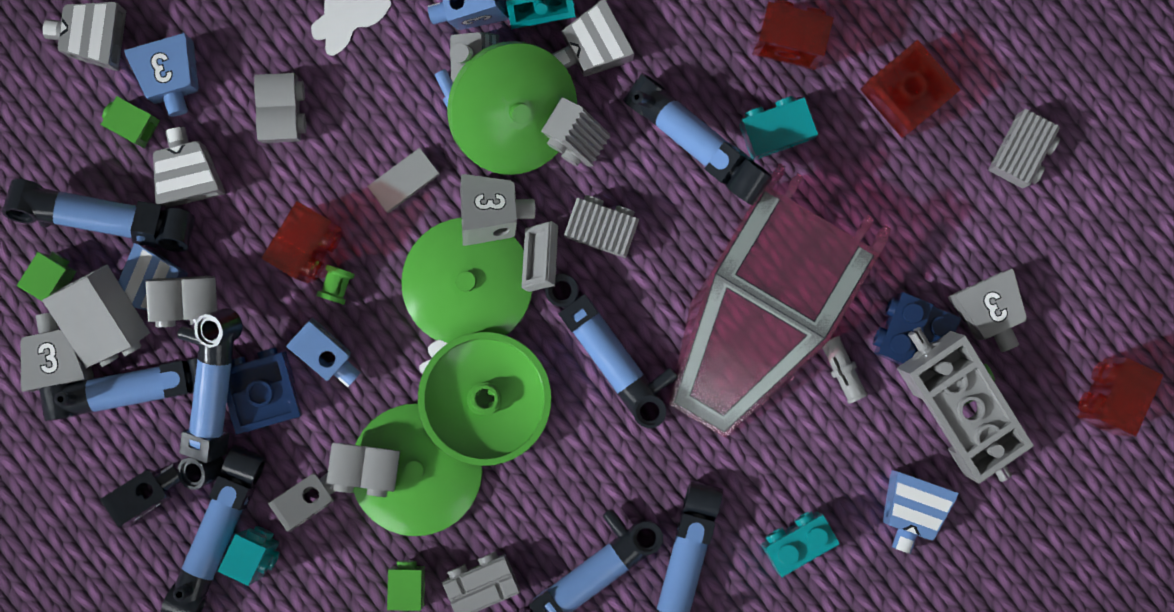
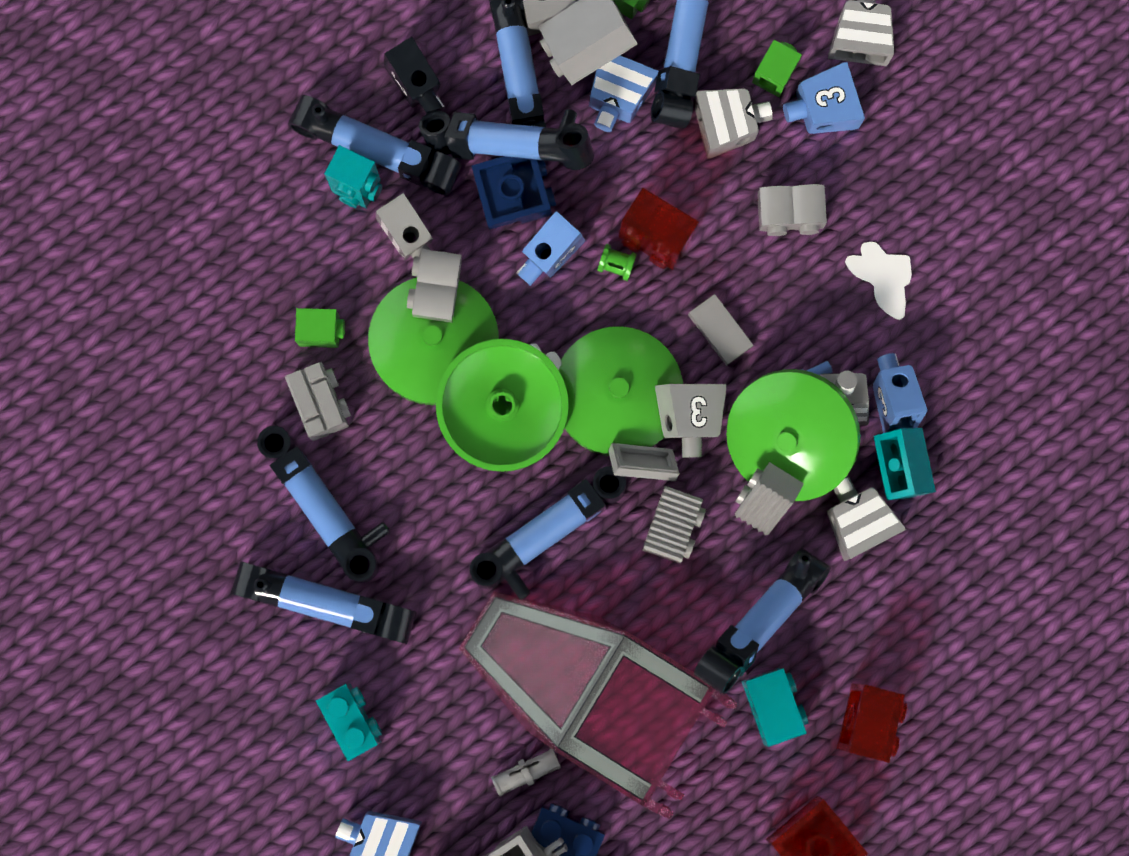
camera: 85 degrees right, 5 degrees down
(180, 299) = (603, 112): light grey brick -> none

